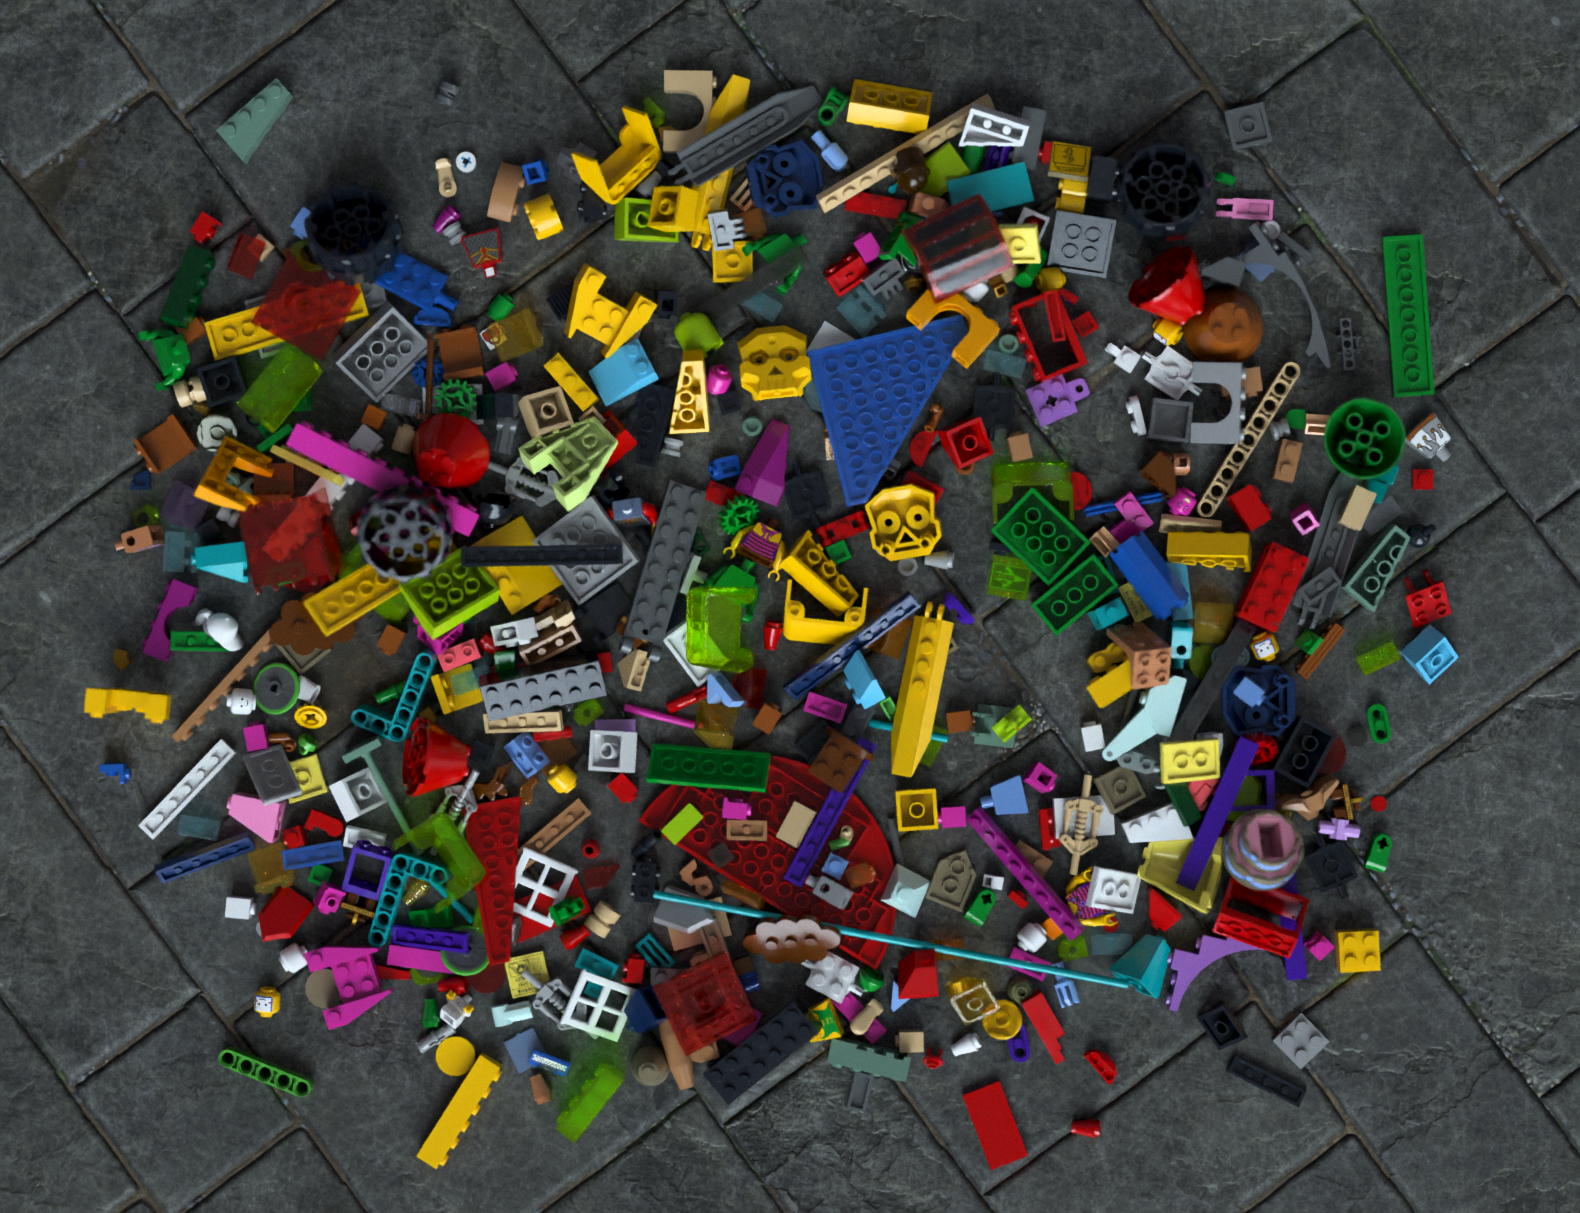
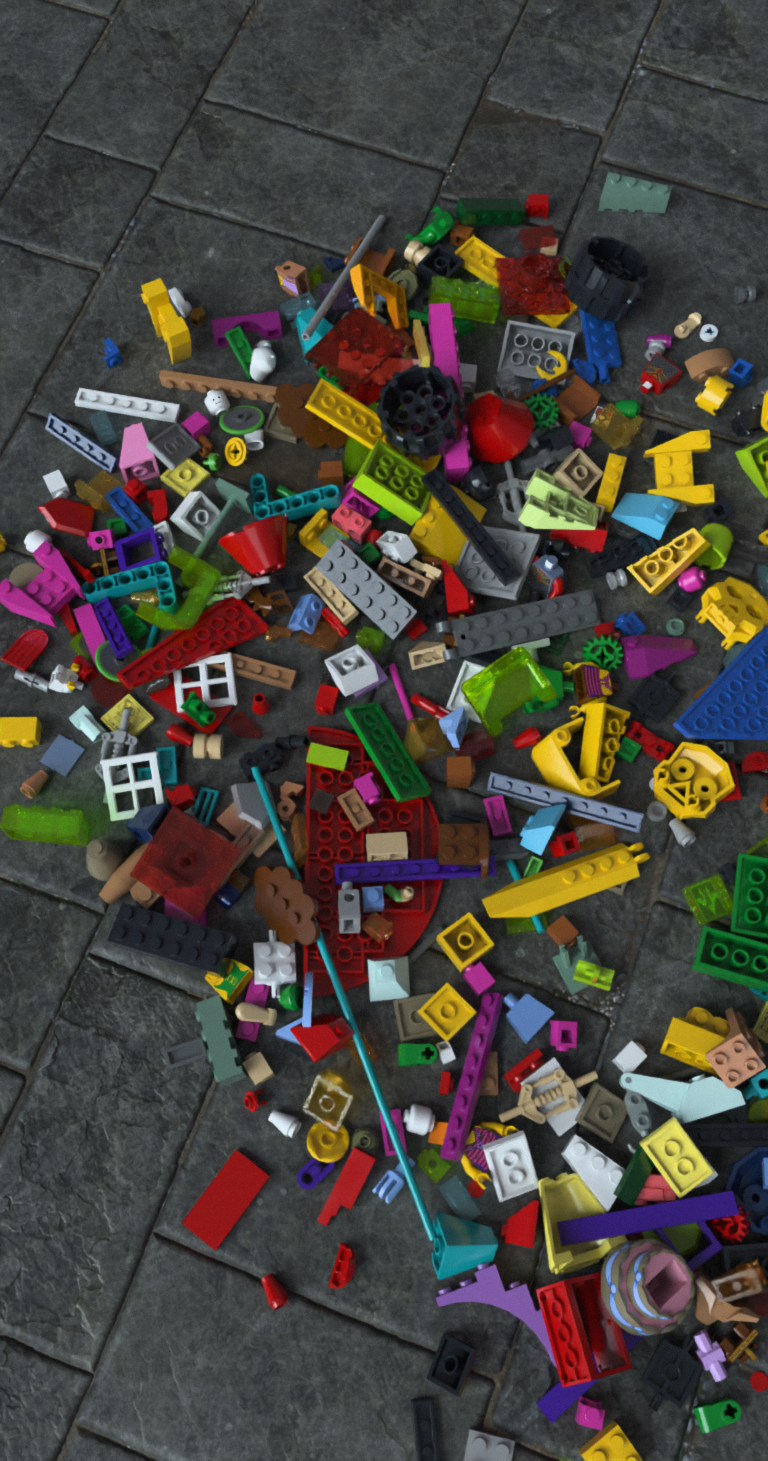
camera: 60 degrees right, 20 degrees down
(103, 667) = (178, 299): none -> white plate
(179, 490) = (315, 321): none -> light grey piece
(345, 936) = (83, 573): none -> red piece
(374, 417) = (485, 376): orange tile -> none
(400, 1027) = (26, 649): none -> red window
(419, 345) = (558, 370): none -> yellow head
(430, 1014) = (48, 665): green cone -> none
(455, 1055) = (26, 702): yellow tile -> none
(549, 1063) = (62, 777): slope -> none
(562, 778) = (304, 649): yellow head -> none
(595, 605) = (457, 593): none -> red slope
(883, 970) = (307, 1003): none -> light blue tile
(888, 669) = (564, 844): none -> red brick
(963, 615) = (651, 880): dark purple plate -> none
(963, 861) = (446, 1012): none -> yellow plate
(1108, 613) = (744, 1000): teal torso -> none
(1305, 777) = (740, 1282): none -> clear orange slope

